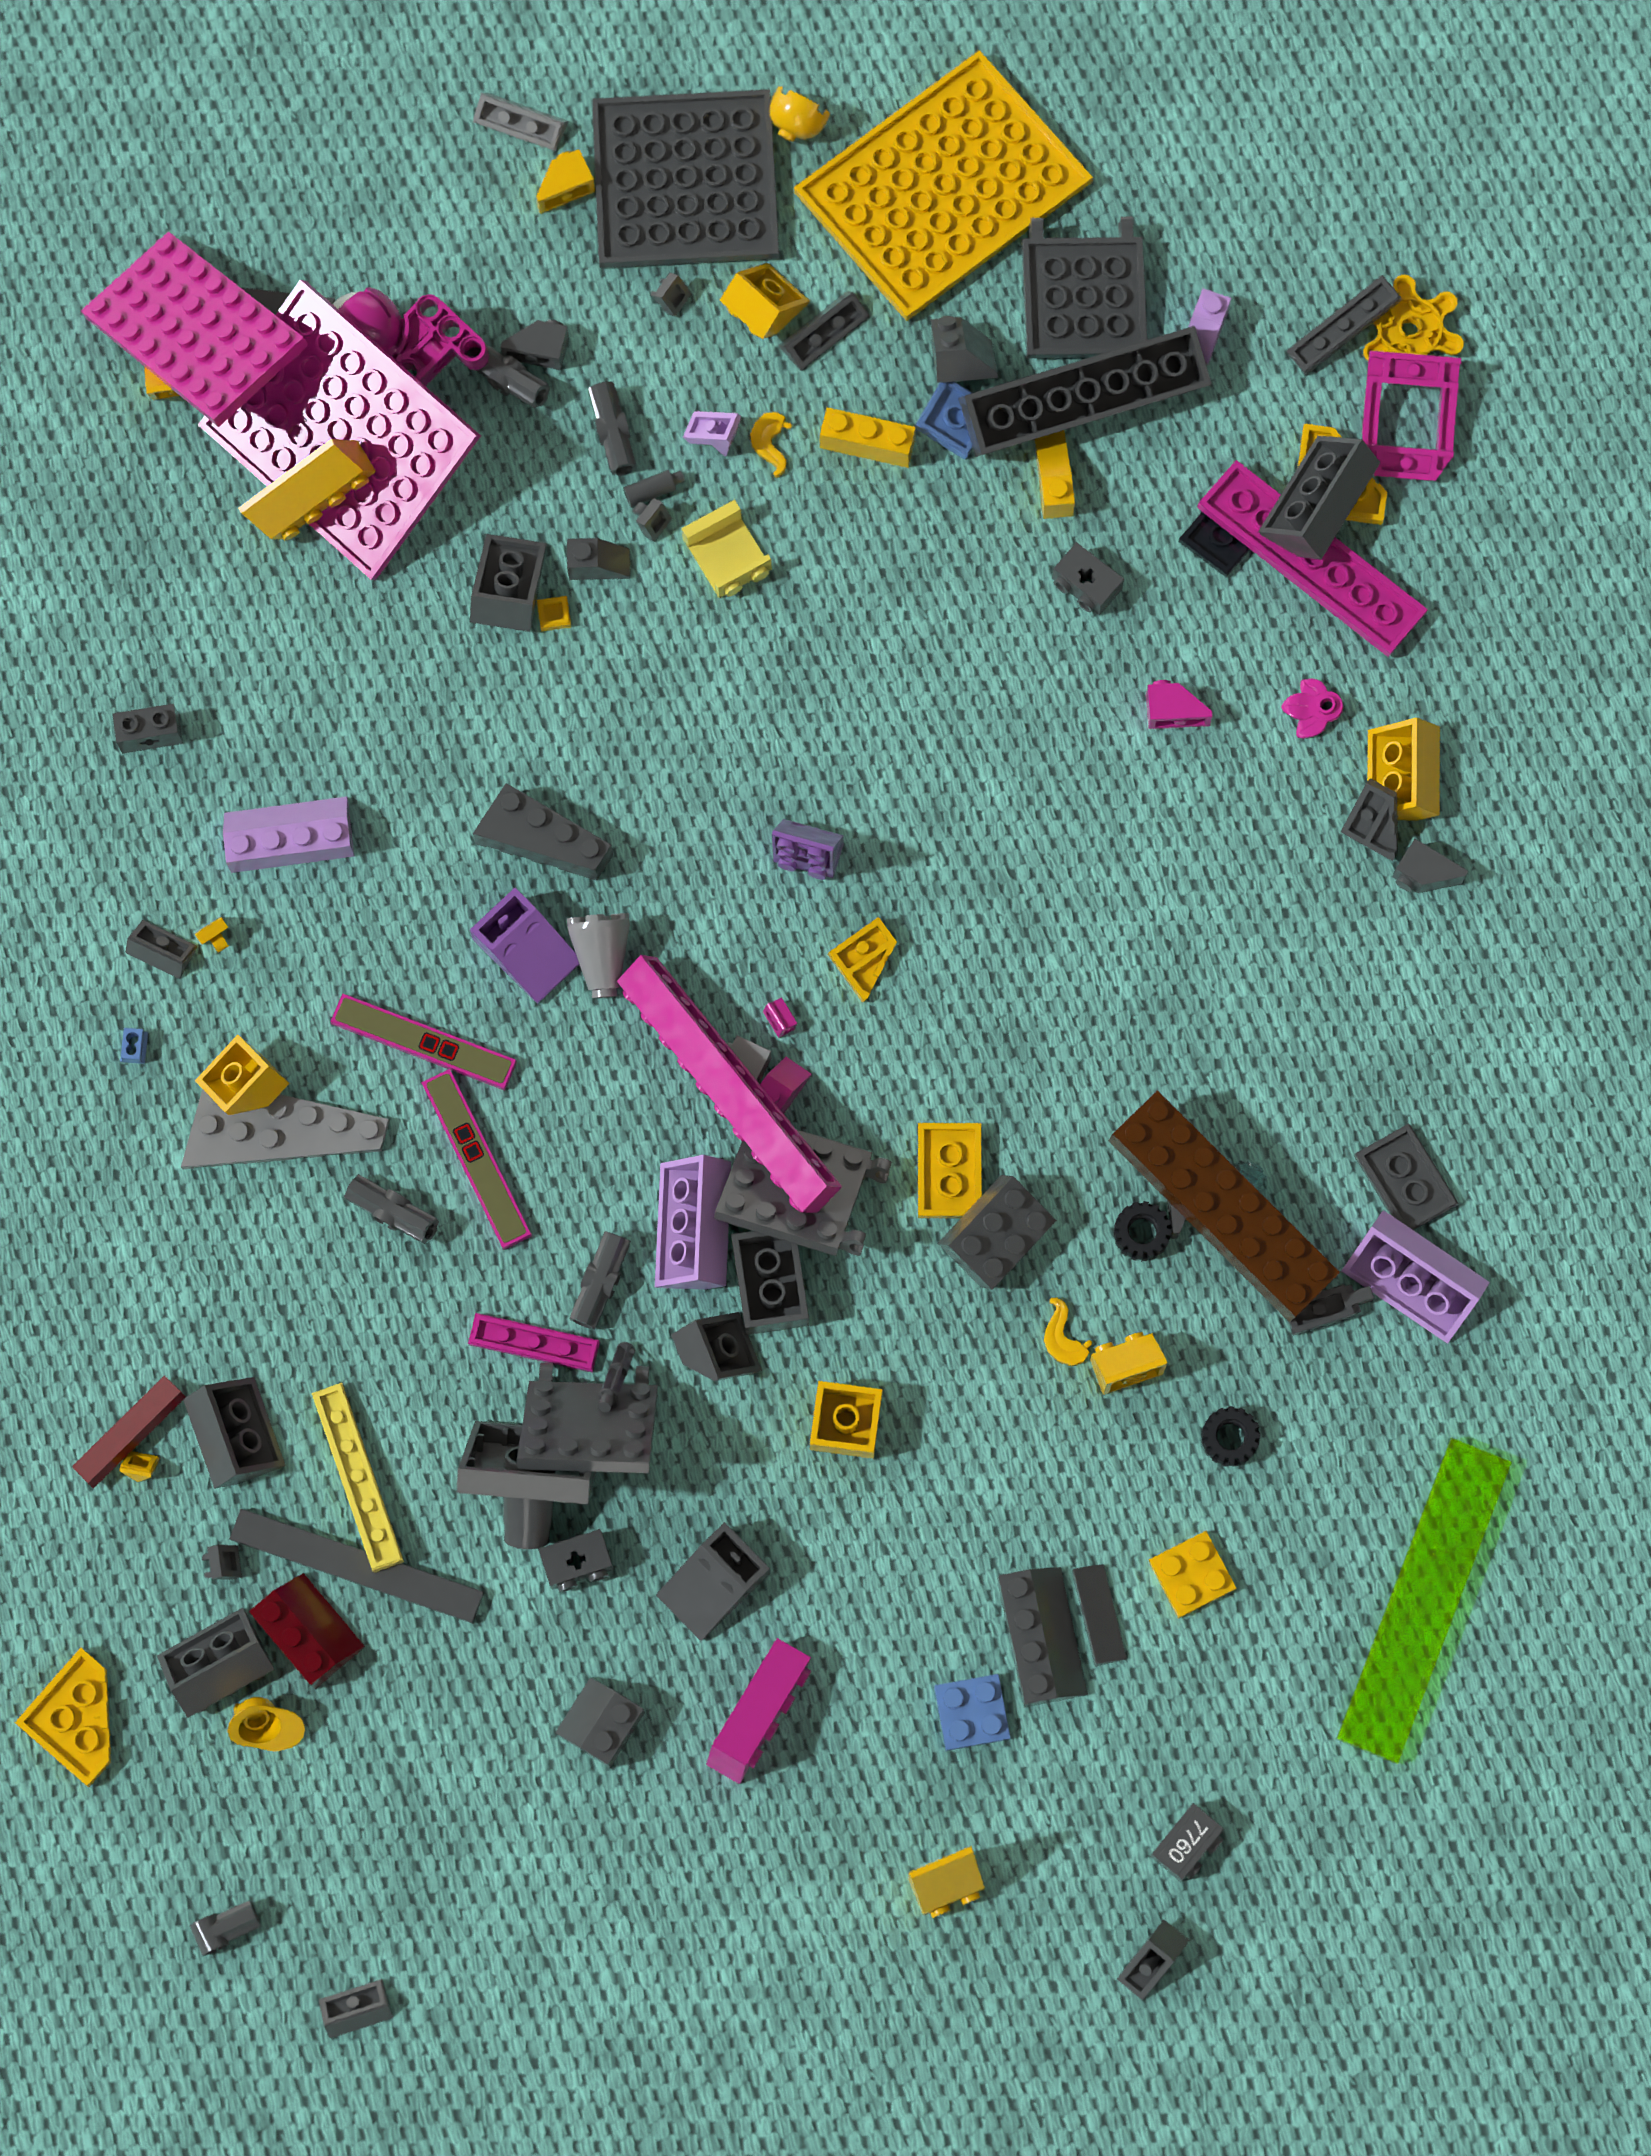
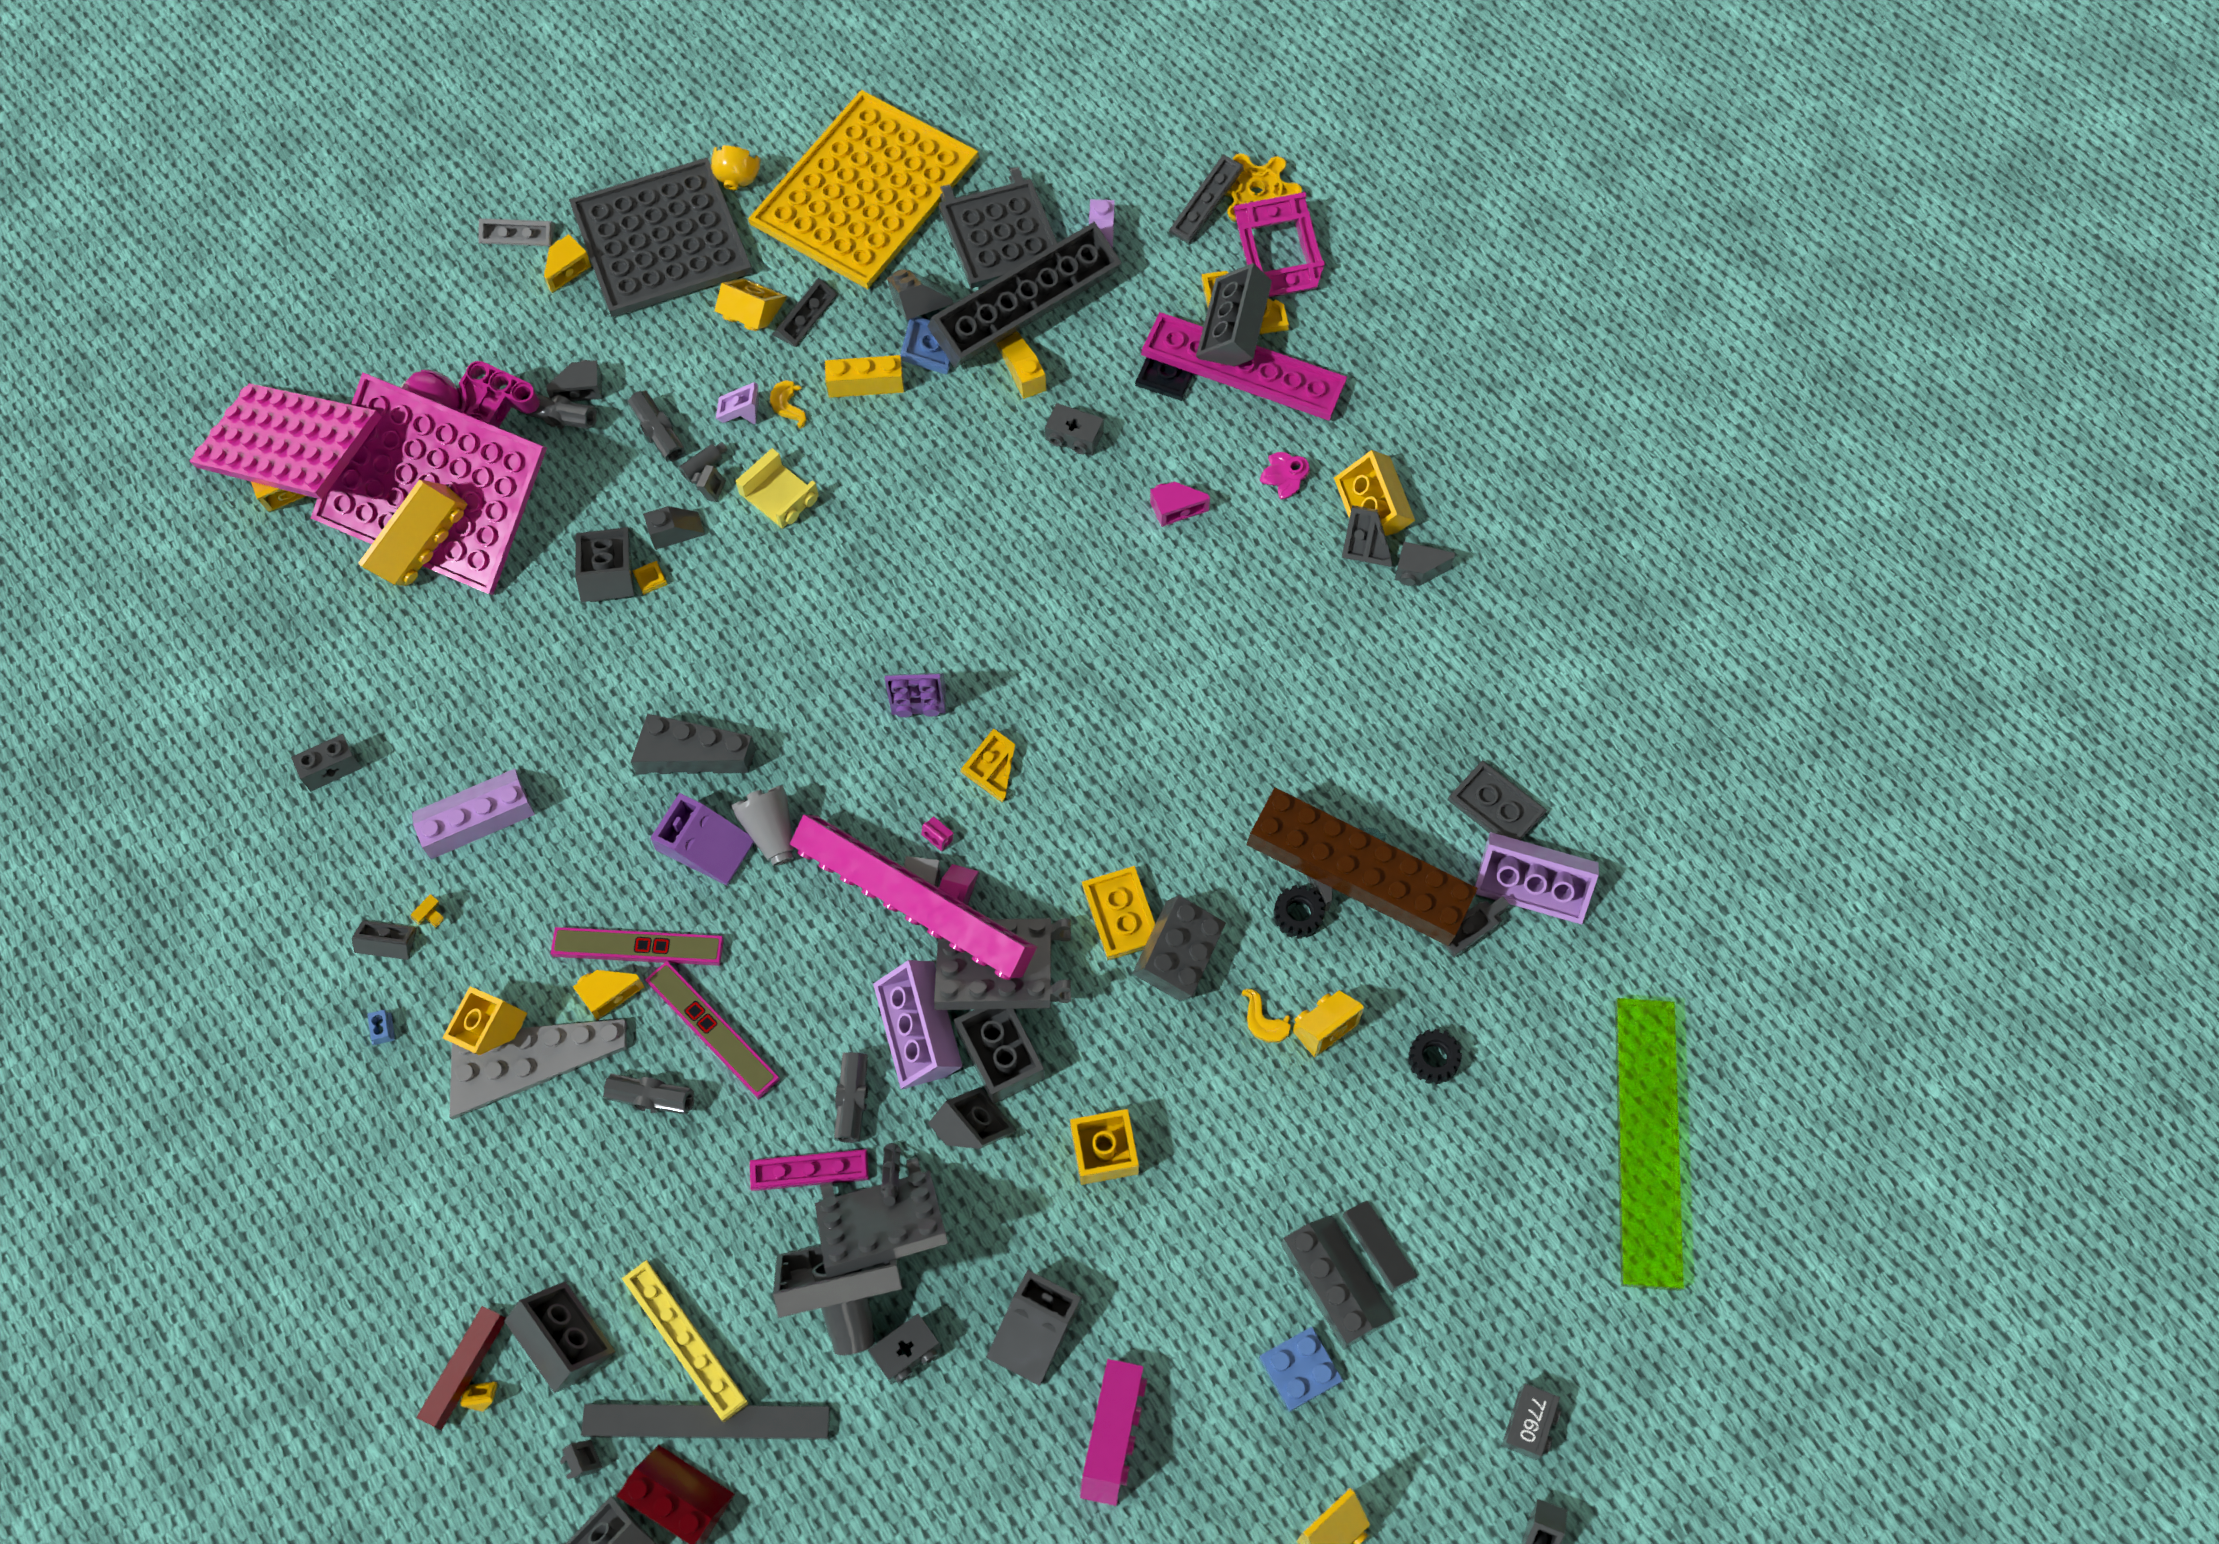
camera: 20 degrees left, 10 degrees down
(377, 1081) = (606, 990): none -> yellow slope
(600, 1722) = (972, 1490): dark grey slope -> none
(671, 294) = (674, 318): dark grey tile -> none
(1192, 1574) = (1445, 1184): yellow plate -> none

